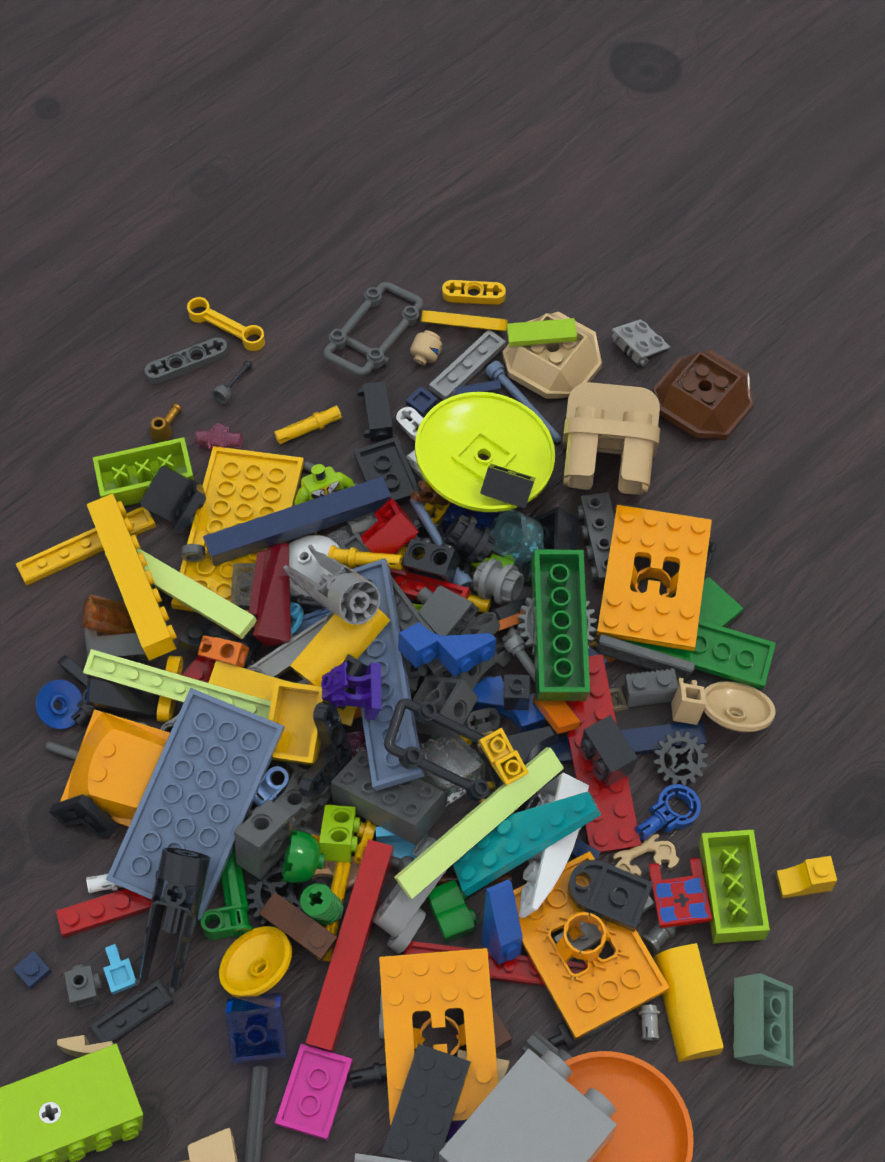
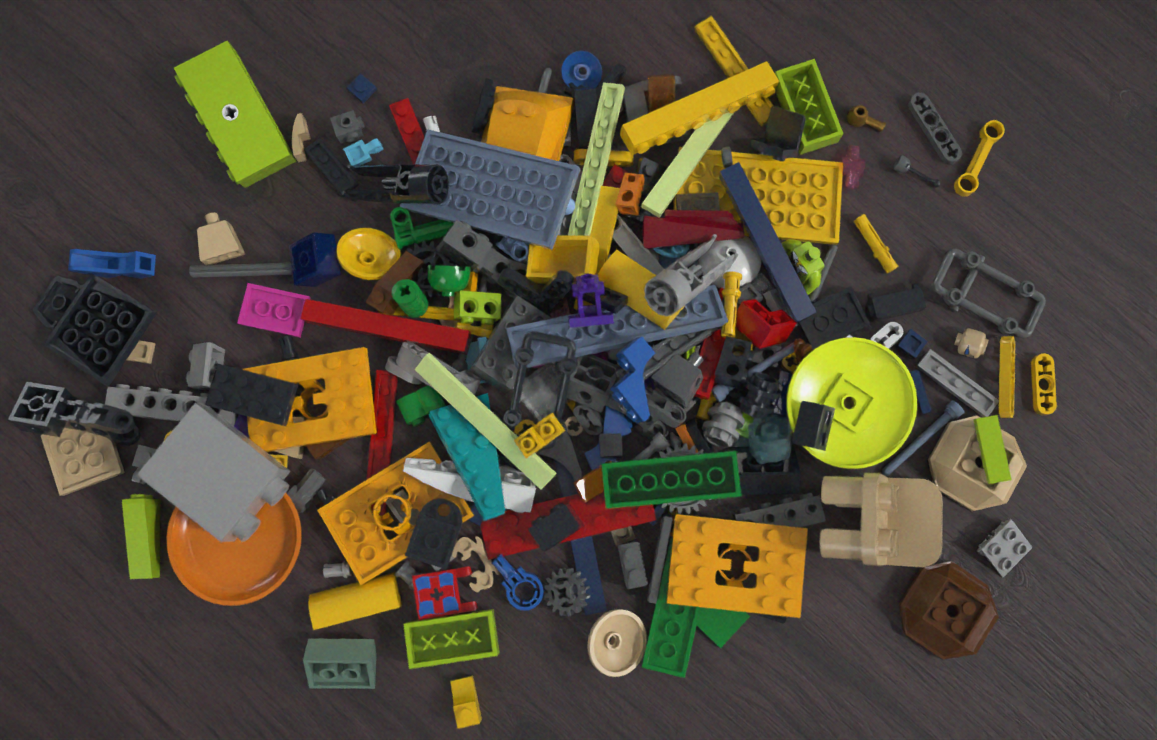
camera: 85 degrees right, 20 degrees up
(501, 923) = (402, 445): blue slope -> none
(688, 702) = (618, 598): tan brick -> none

